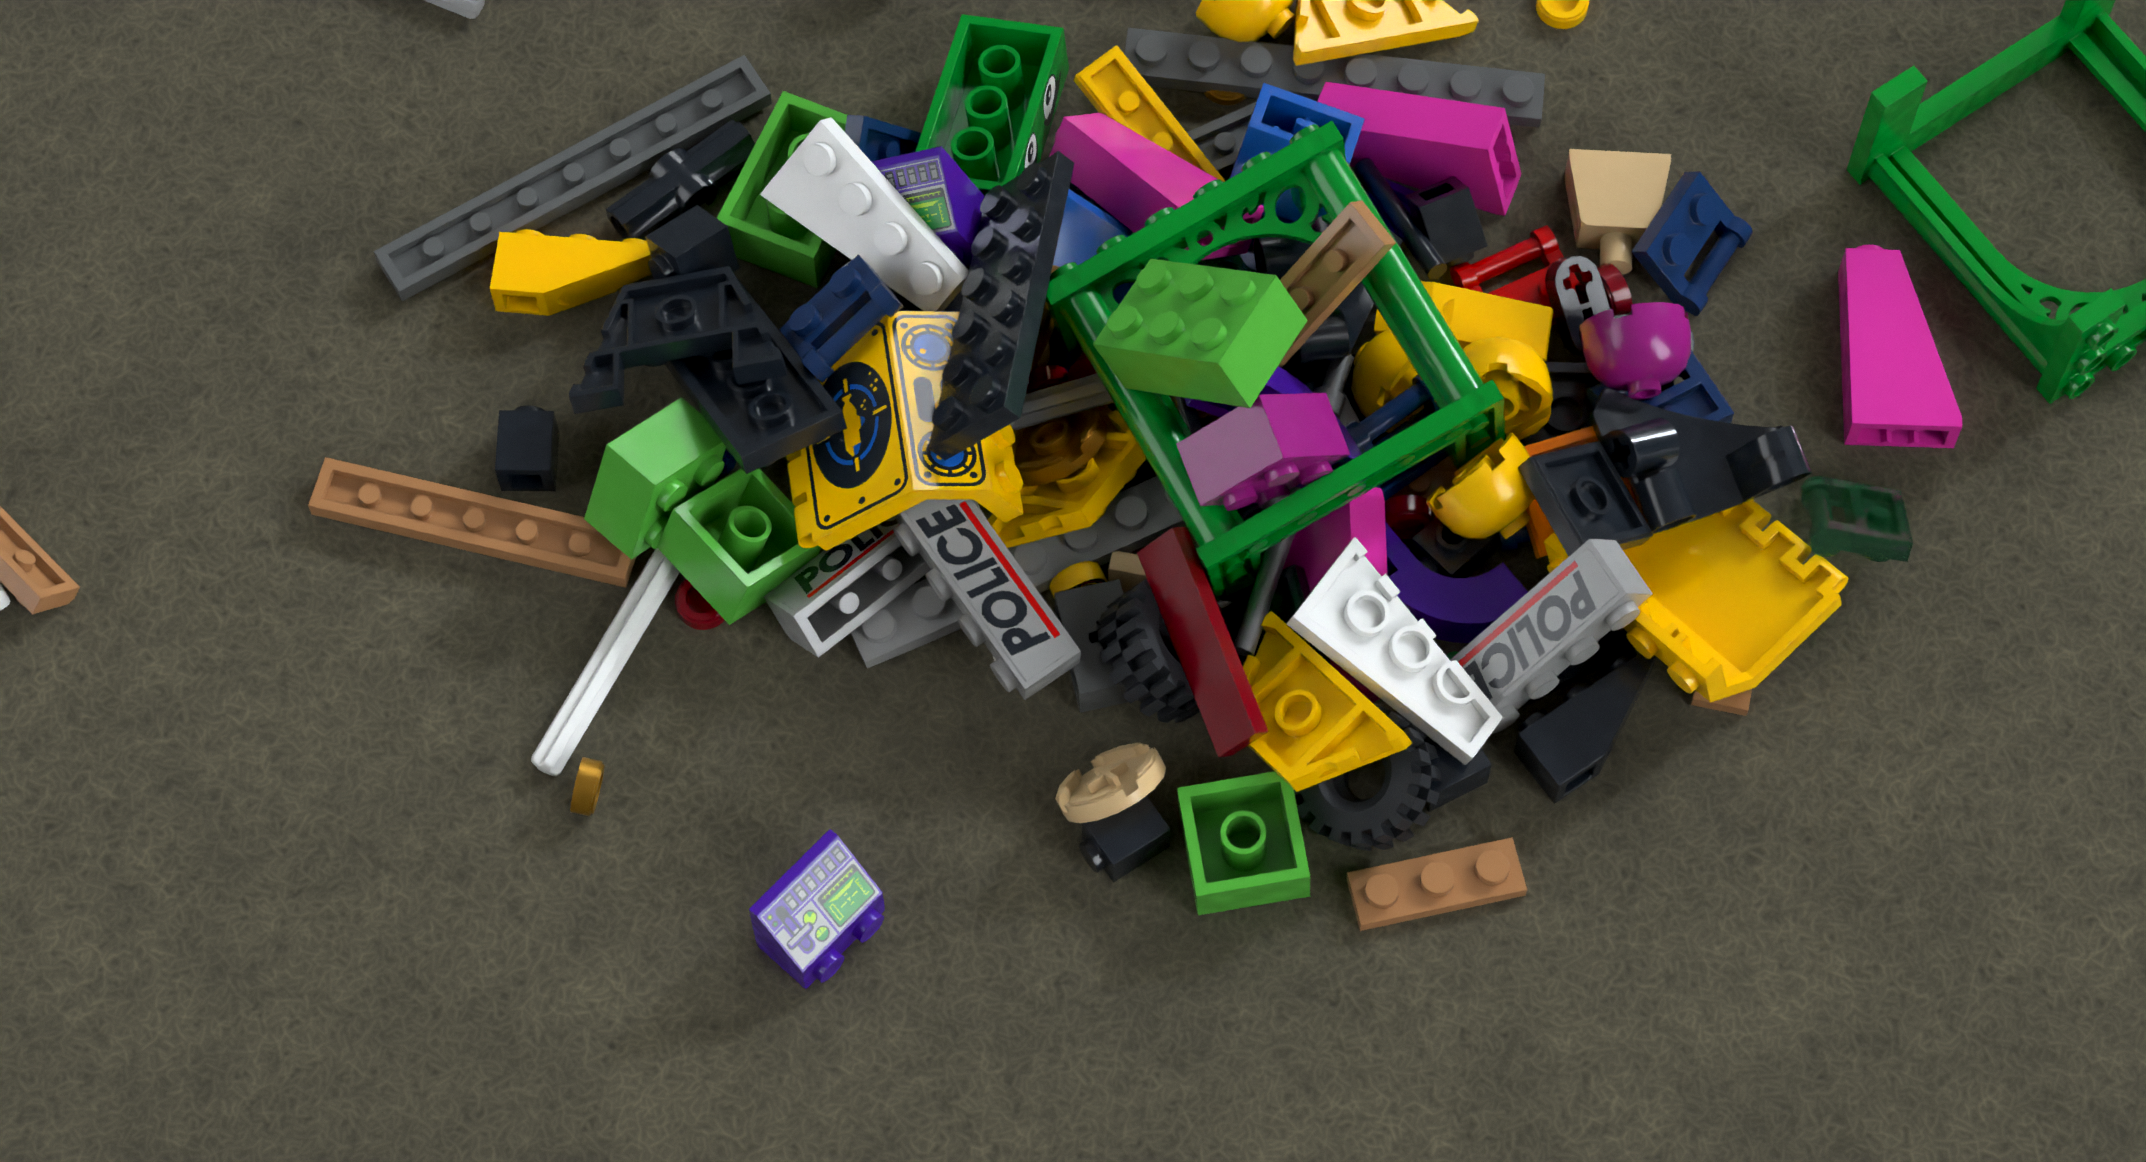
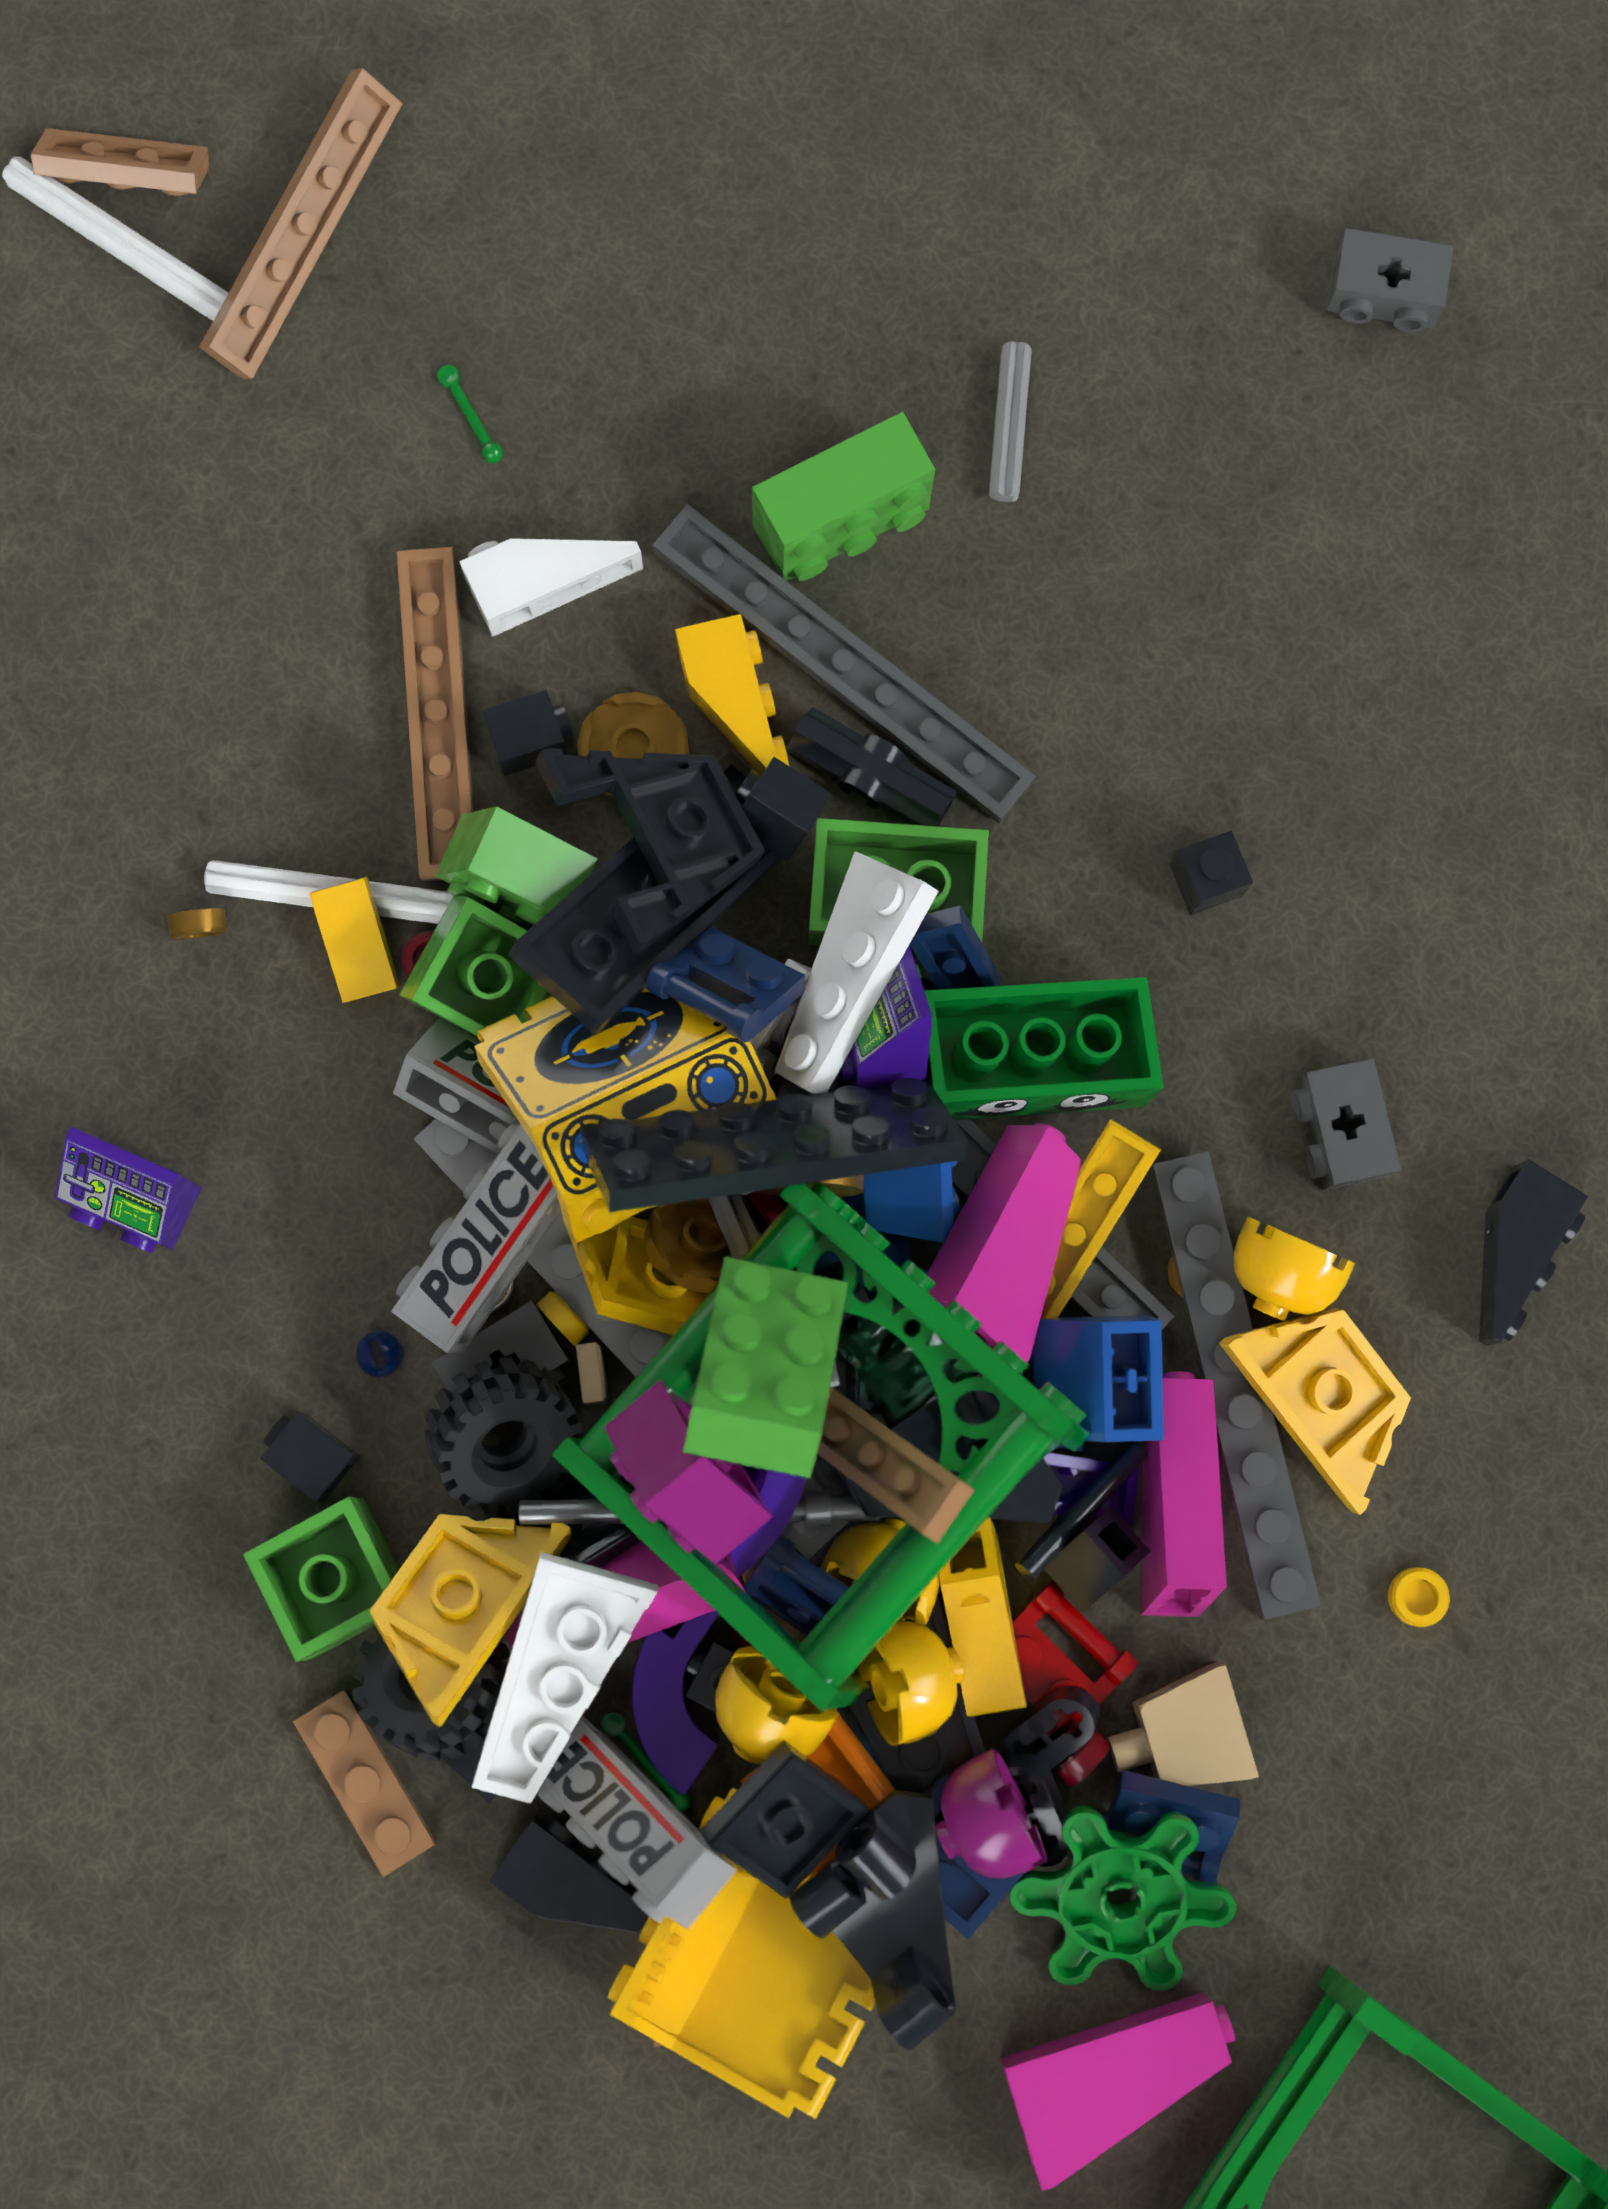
camera: 65 degrees right, 15 degrees up
(155, 421) = (449, 378): none -> green hinge
(382, 400) = (537, 575): none -> white slope
(433, 116) = (843, 498): none -> bright green brick
(548, 384) = (629, 715): none -> pearl gold tile
(660, 652) = (354, 939): none -> yellow tile
(1051, 761) = (390, 1349): none -> clear blue hinge
(1115, 783) = (348, 1426): tan tile -> none
(1202, 642) = (493, 1473): dark red tile -> none
(1768, 288) = (1127, 1931): none -> green plate
(1873, 514) = (904, 2123): clear green plate -> none

